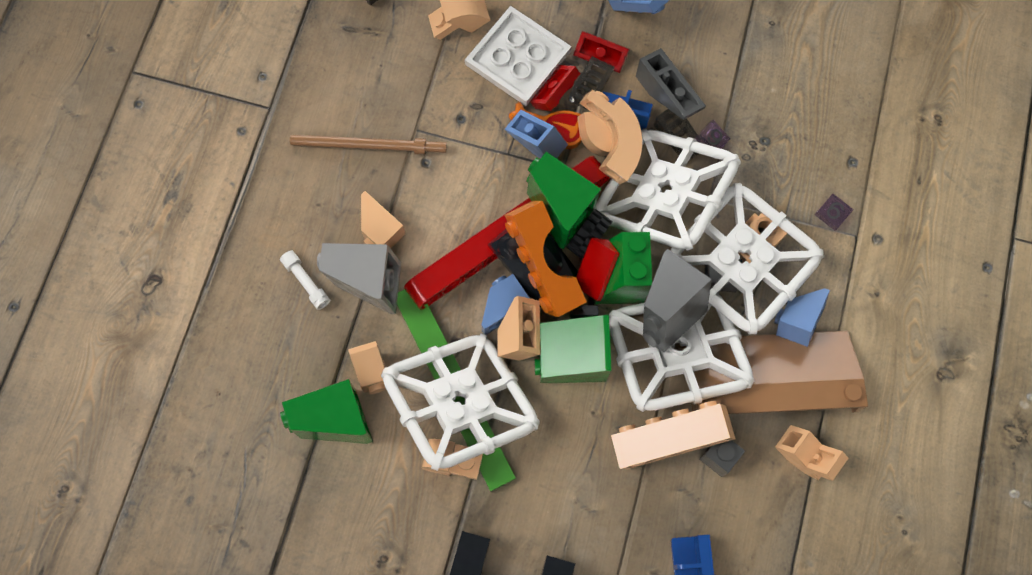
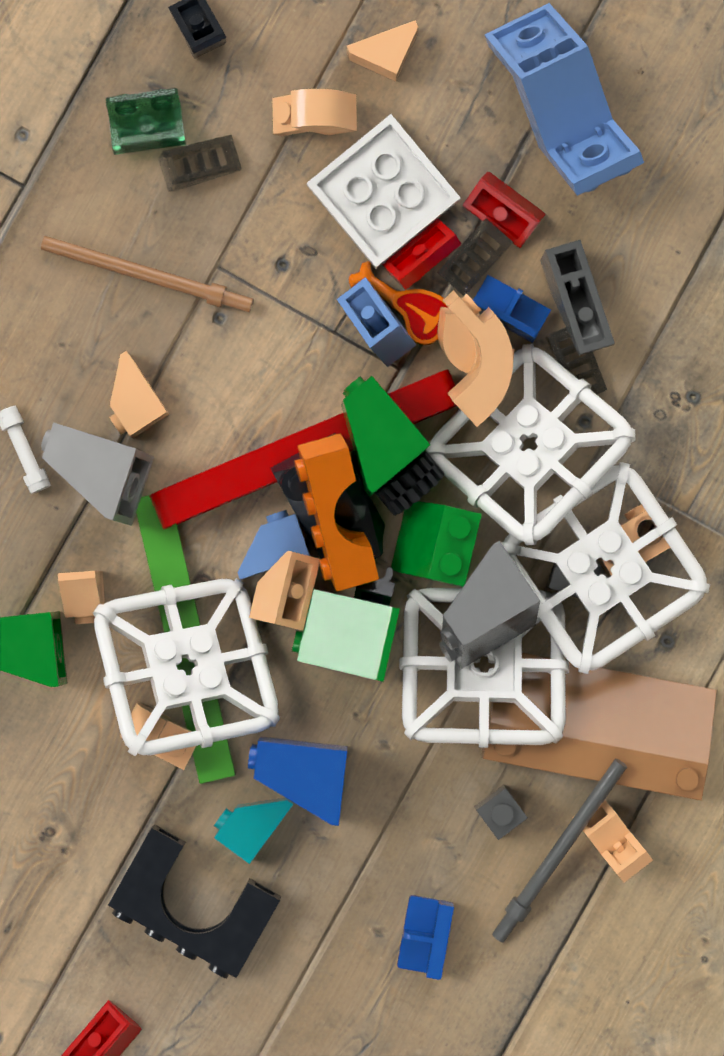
camera: 15 degrees right, 15 degrees up
(345, 44) = (145, 121): none -> clear green bracket
(373, 73) = (203, 174): none -> clear smoke slope
(537, 512) = (250, 825): none -> teal slope
(568, 459) = (303, 773): none -> blue slope
(597, 267) = (404, 536): red slope -> none
(673, 436) = (440, 778): light nougat brick -> none
(713, 135) = (618, 381): tile -> none
(756, 525) = (519, 906): none -> dark grey bar
(801, 316) = (659, 660): medium blue slope -> none

